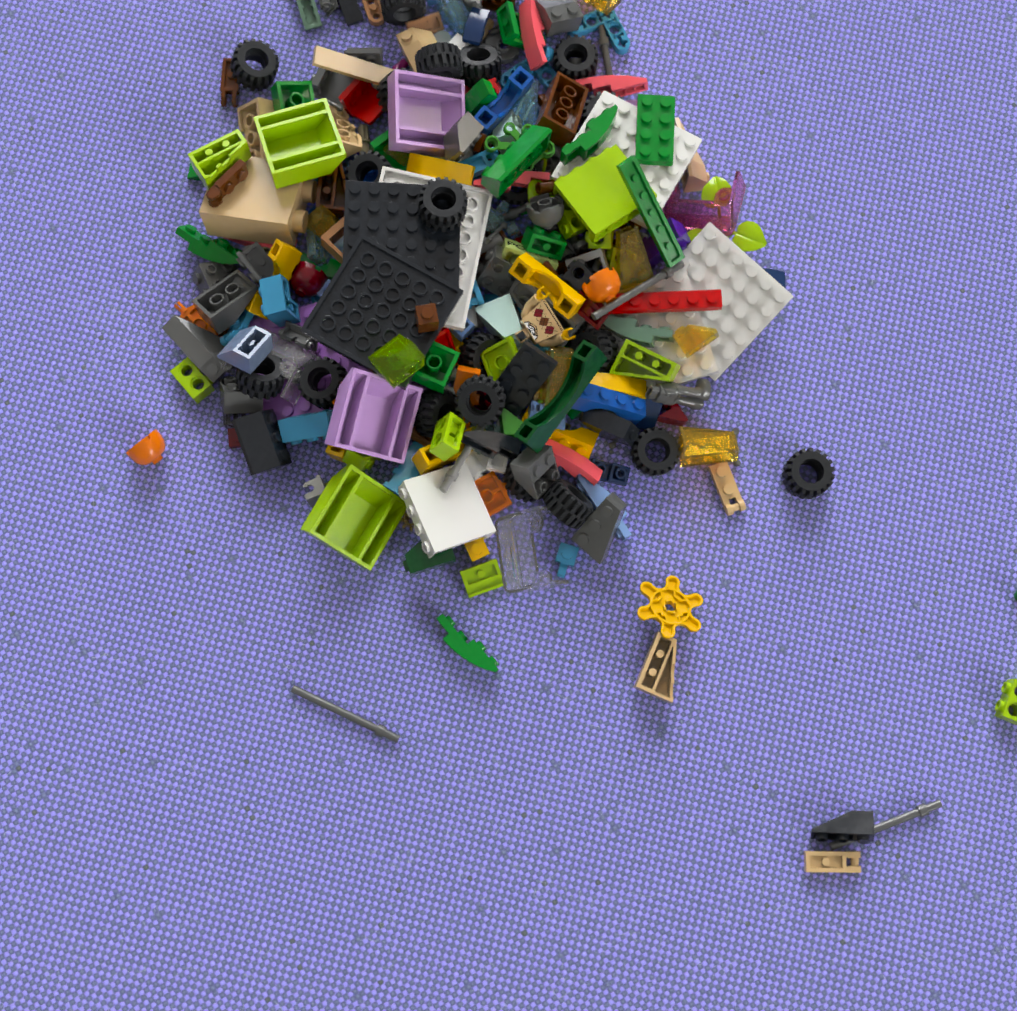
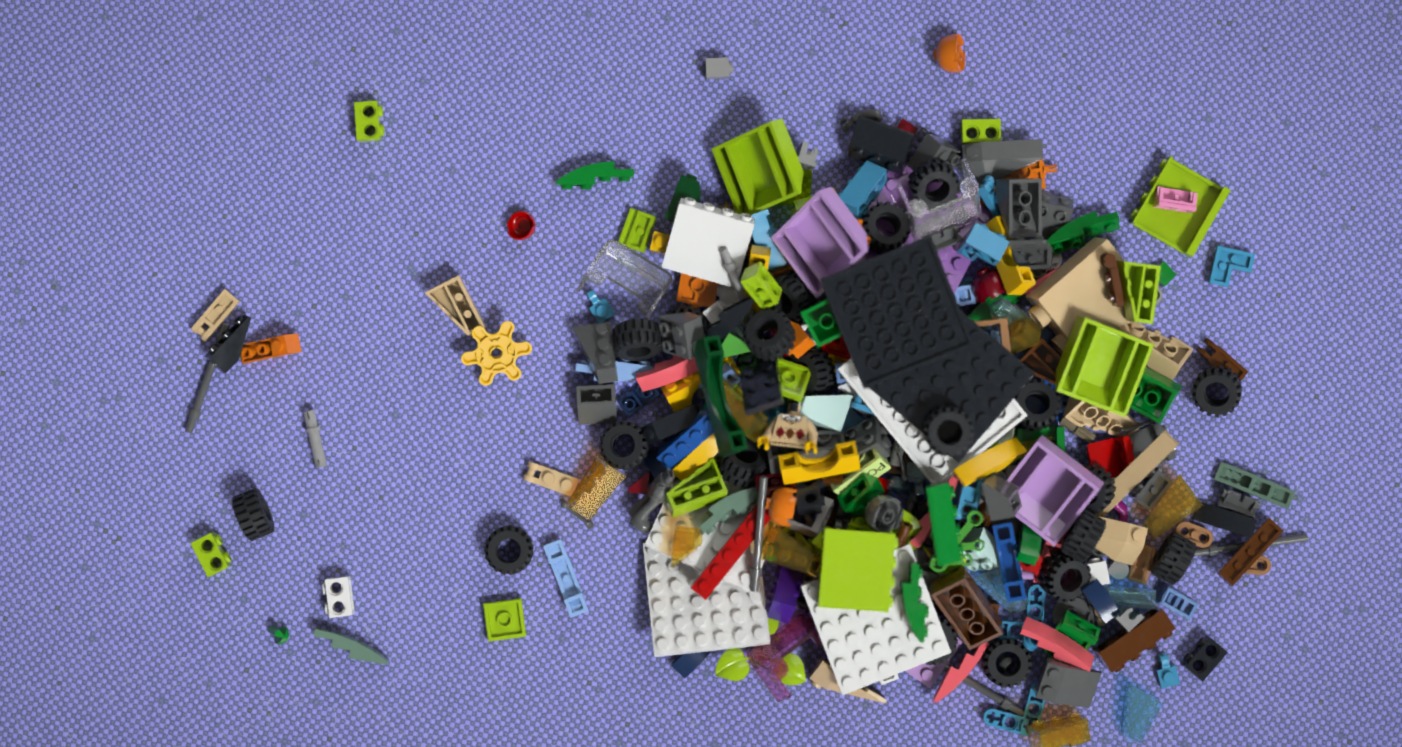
camera: 130 degrees right, 10 degrees up
(132, 200) = (1175, 200): none -> bright pink hinge
(136, 195) = (1175, 228): none -> lime panel
(153, 134) = (1227, 259): none -> dark azure plate
(244, 472) = (873, 114): none -> dark grey arm
(247, 348) = (957, 187): sand blue slope -> none
(301, 619) = (718, 68): none -> light grey brick
(367, 32) = (1173, 508): none -> clear yellow wedge
(380, 730) = (586, 61): dark grey bar -> none
(397, 360) = (846, 289): clear neon green slope -> none
(426, 318) = (860, 339): reddish brown brick -> none
(554, 671) = (521, 225): none -> red hair
(578, 872) = (363, 122): none -> lime brick
(641, 498) = (596, 404): none -> dark grey slope
(650, 211) = (808, 589): green plate -> none
(655, 129) = (880, 660): green plate -> none
(790, 414) = (566, 578): none -> light blue slope
(818, 791) = (270, 348): none -> orange slope
(851, 703) = (315, 438): none -> light grey pin
(860, 436) = (504, 619): none -> lime plate
(954, 571) = (344, 596): none -> white brick
(960, 692) = (253, 514): none -> black tyre
(980, 526) = (357, 649): none -> sand green slope

